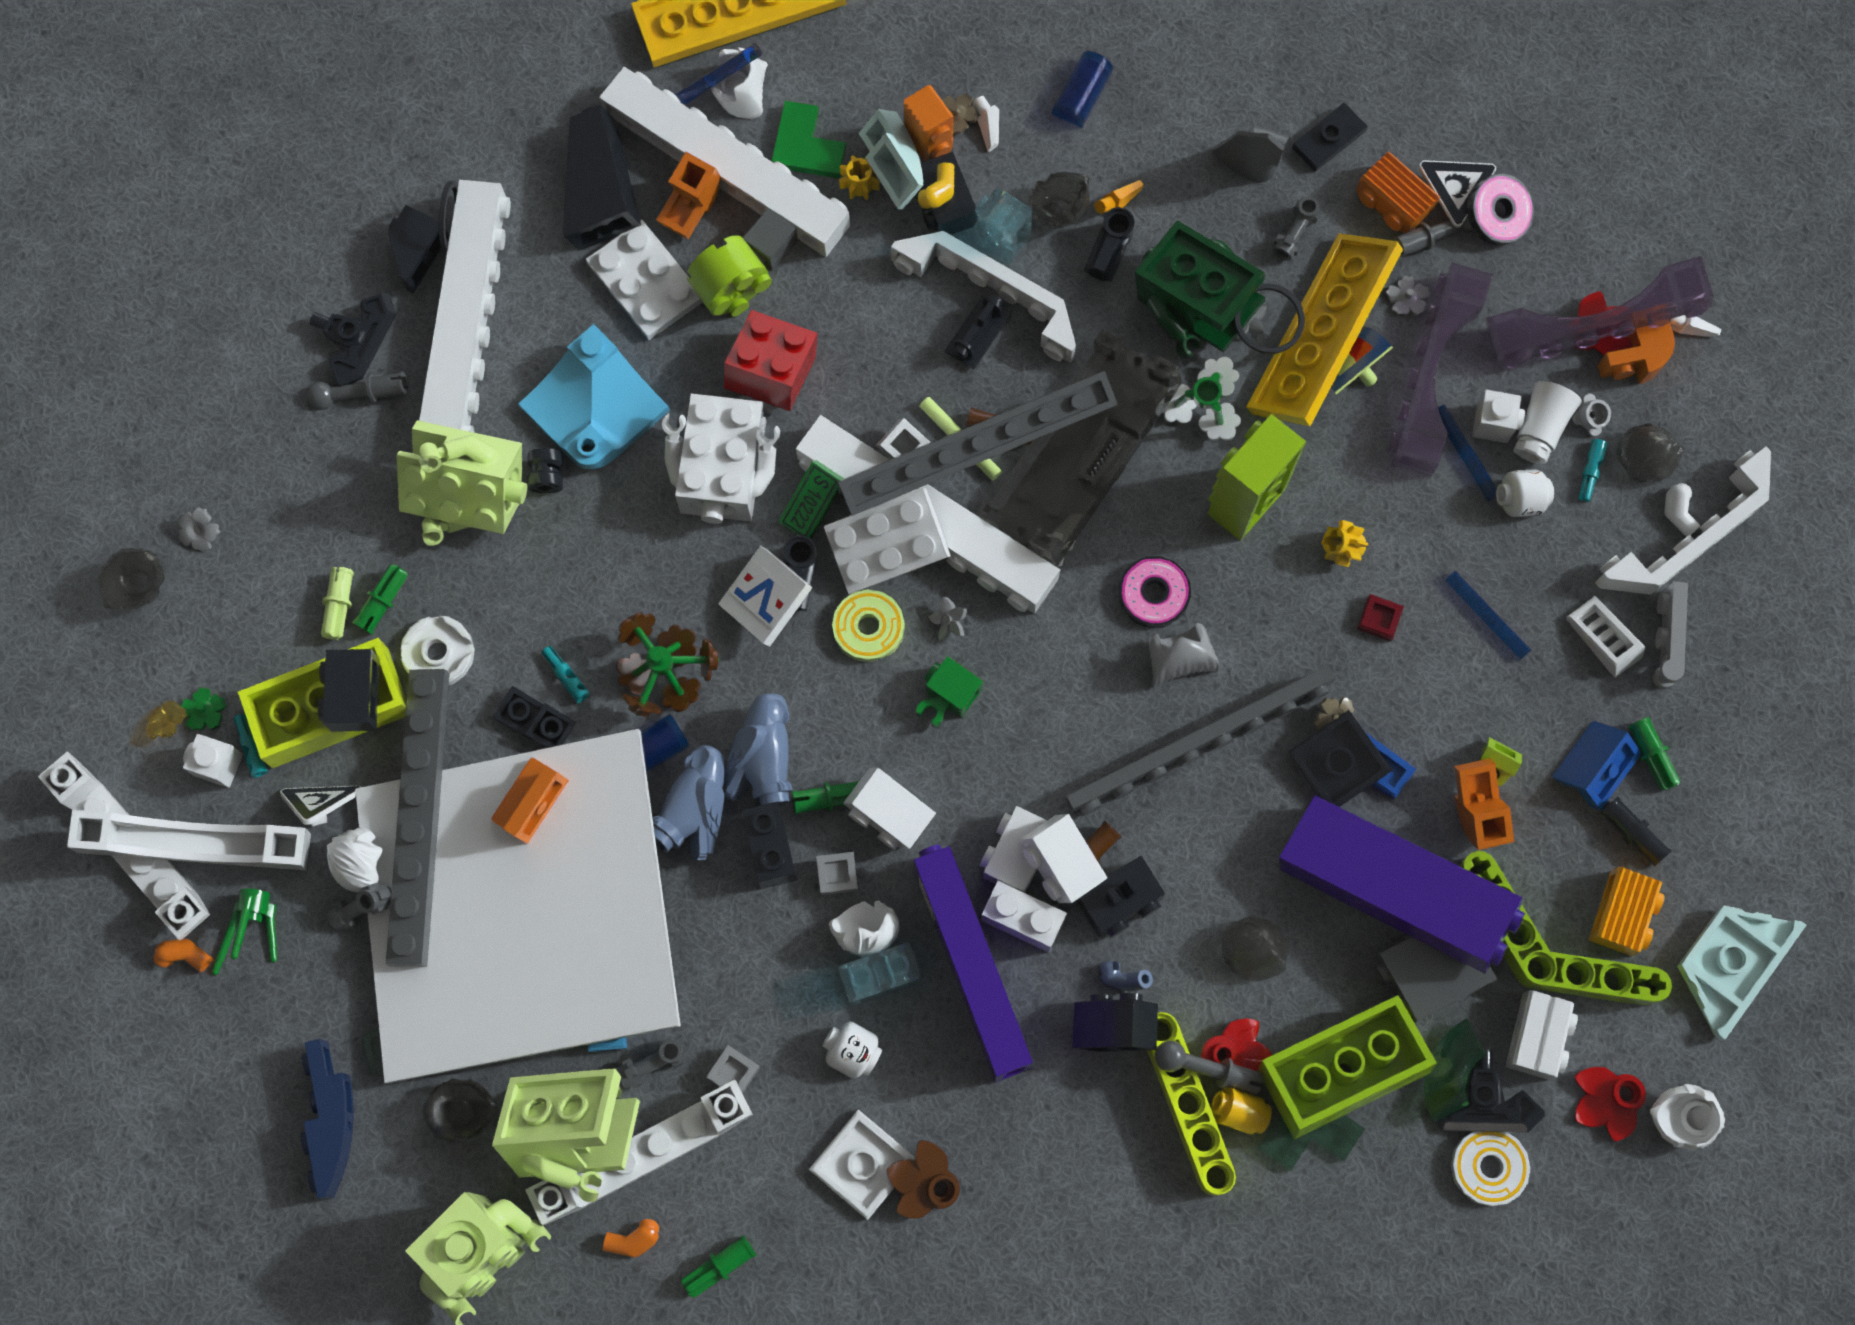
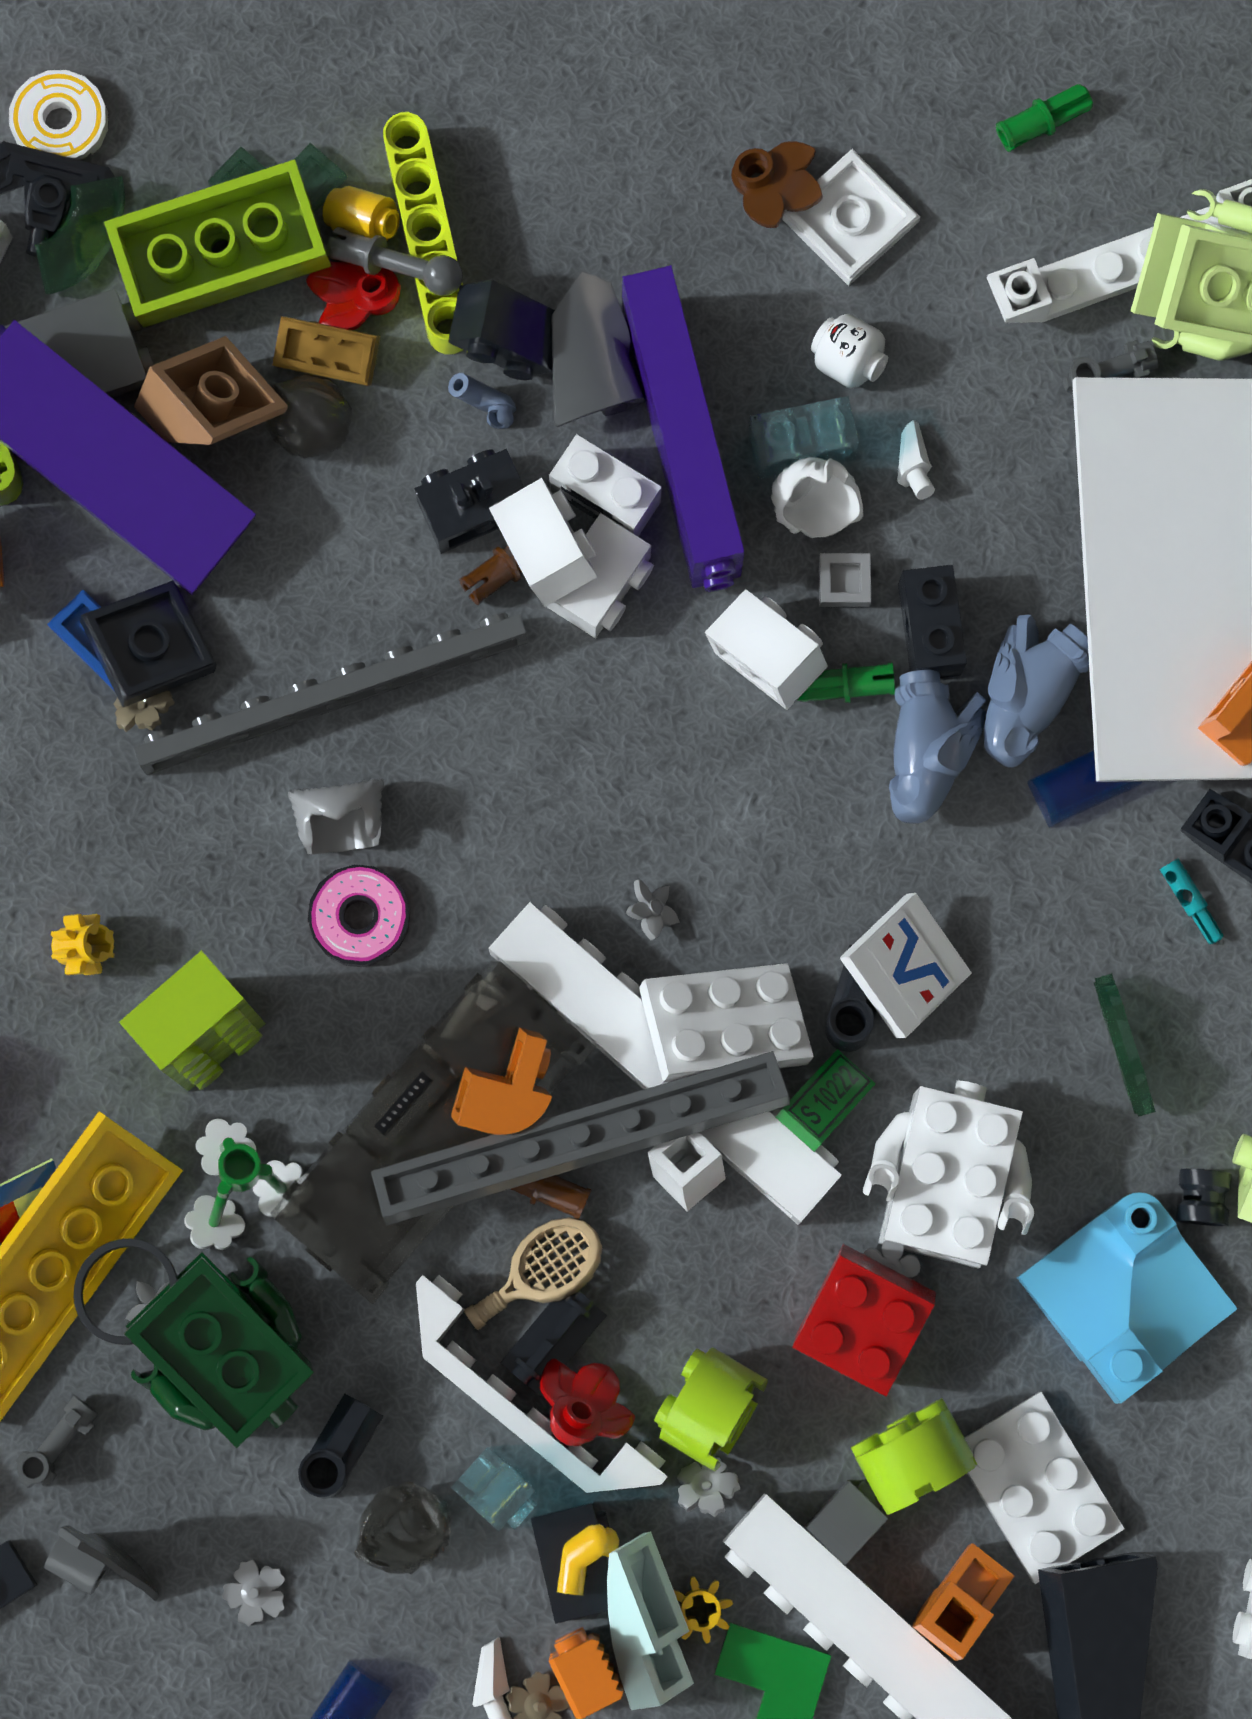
camera: 175 degrees left, 5 degrees up
(607, 564) = (1124, 1045): none -> clear green tile
(636, 1242) = (1147, 156): orange arm -> none
(674, 649) = (1086, 888): reddish brown plant -> none
(732, 1067) = (1005, 346): light grey plate -> none
(794, 972) = (914, 462): none -> white bar
(864, 252) = (706, 1488): none -> light grey plant
(866, 291) = (710, 1406): none -> lime brick
(876, 645) = (771, 887): yellowish green tile -> none
(950, 688) = (661, 806): green brick -> none
(951, 294) = (584, 1403): none -> red plate
(951, 427) = (617, 1201): yellowish green bar -> none
(1030, 342) = (498, 1300): none -> tan piece
(1033, 463) = (509, 1102): none -> orange brick
(1048, 1018) = (591, 354): none -> dark grey panel
(1118, 198) = (316, 1528): light orange bar -> none
(1150, 159) = (255, 1592): none -> light grey plant
(1249, 1000) = (326, 351): none -> pearl gold plate
(1328, 938) = (206, 395): none -> medium nougat slope
(1380, 617) = (52, 840): dark red tile -> none

